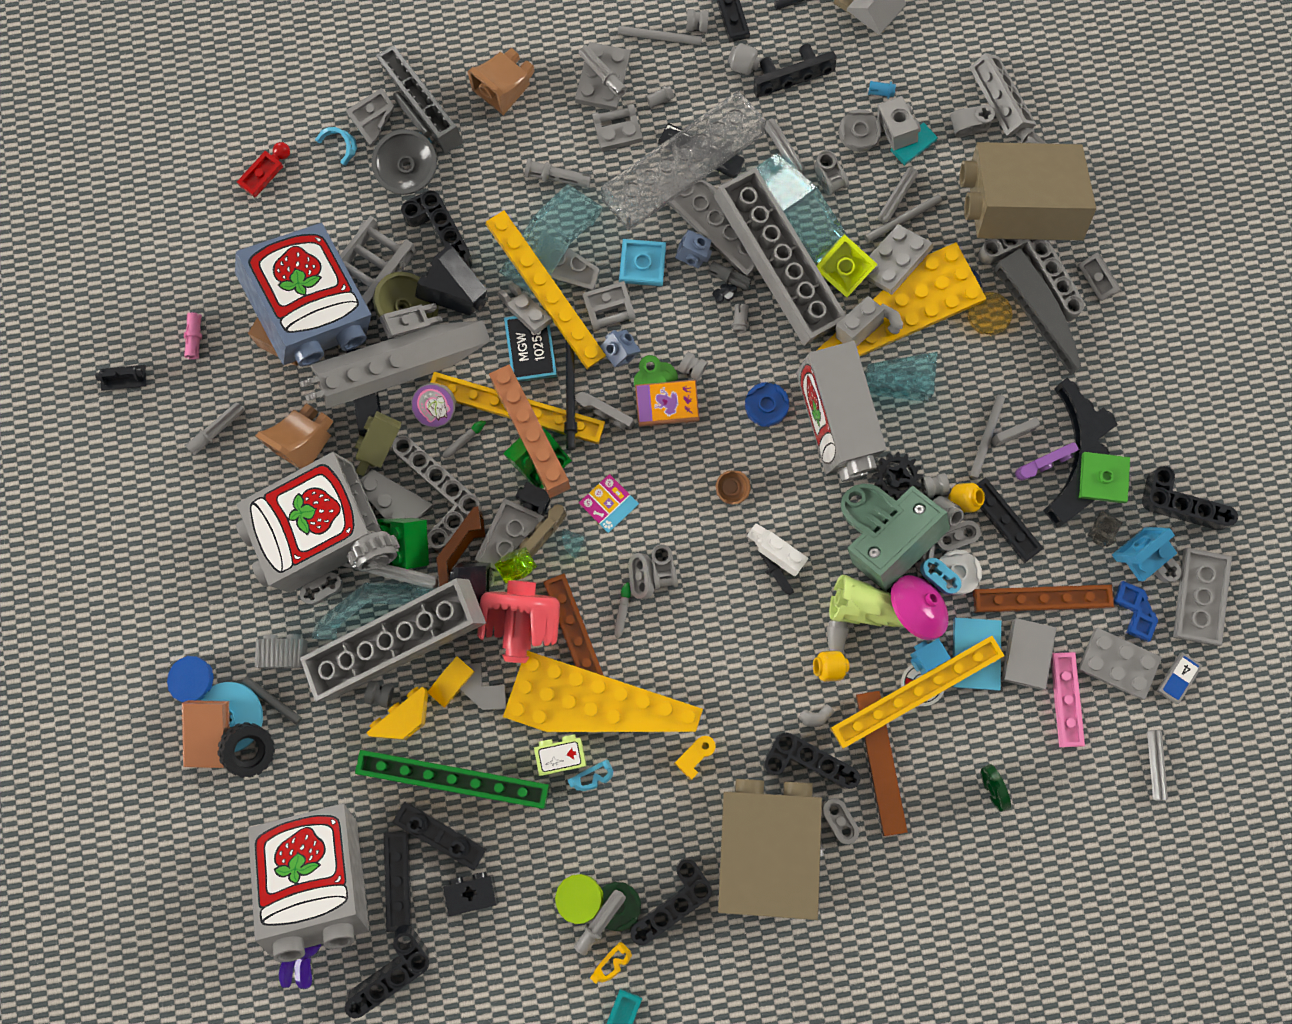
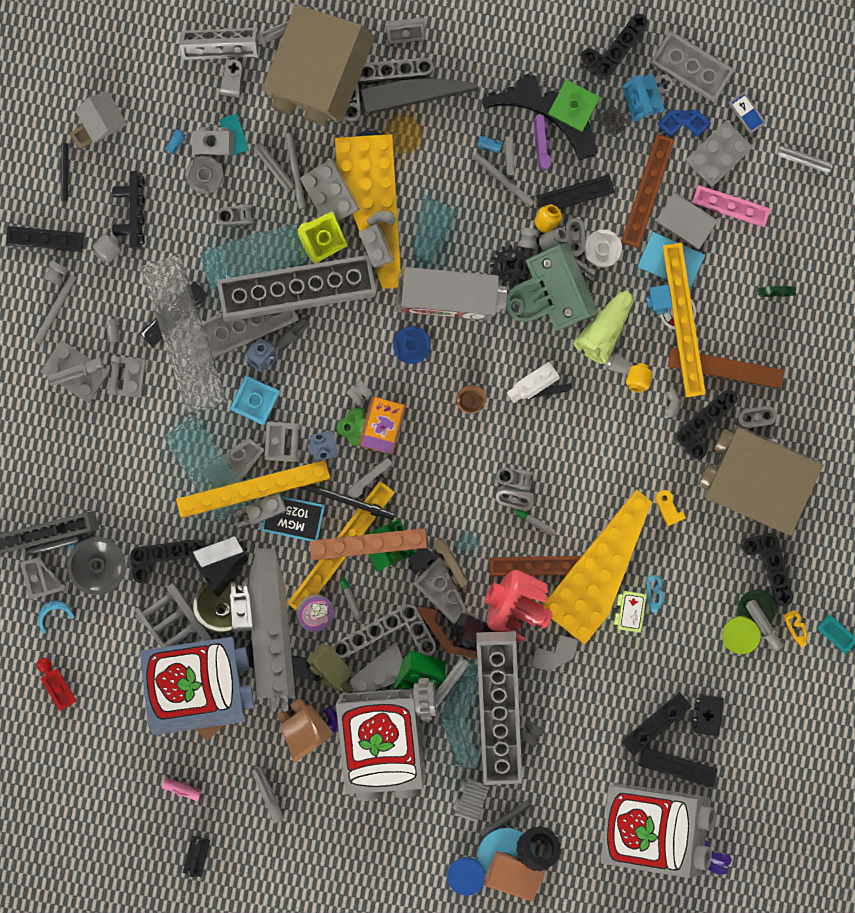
camera: 65 degrees left, 10 degrees up
(324, 593) = (436, 750): light grey beam -> none
(385, 978) = (744, 799): black beam -> none
(403, 718) = (558, 722): yellow slope -> none
(450, 681) = (542, 675): yellow slope -> none
(452, 779) = (618, 698): green brick -> none
(501, 80) = (50, 458): medium nougat hips -> none
(515, 565) = (472, 593): clear neon green brick -> none
(548, 172) = (146, 450): light grey pin -> none
(608, 503) = (445, 501): sticker -> none
(725, 292) = (306, 342): black plant -> none
(740, 318) = (332, 338): light grey pin -> none
(783, 145) = (195, 244): light grey axle -> none
(919, 607) = (620, 292): dark pink dish -> none
(944, 572) = (604, 268): medium azure beam -> none
(1019, 406) = (489, 144): none -> dark azure pin

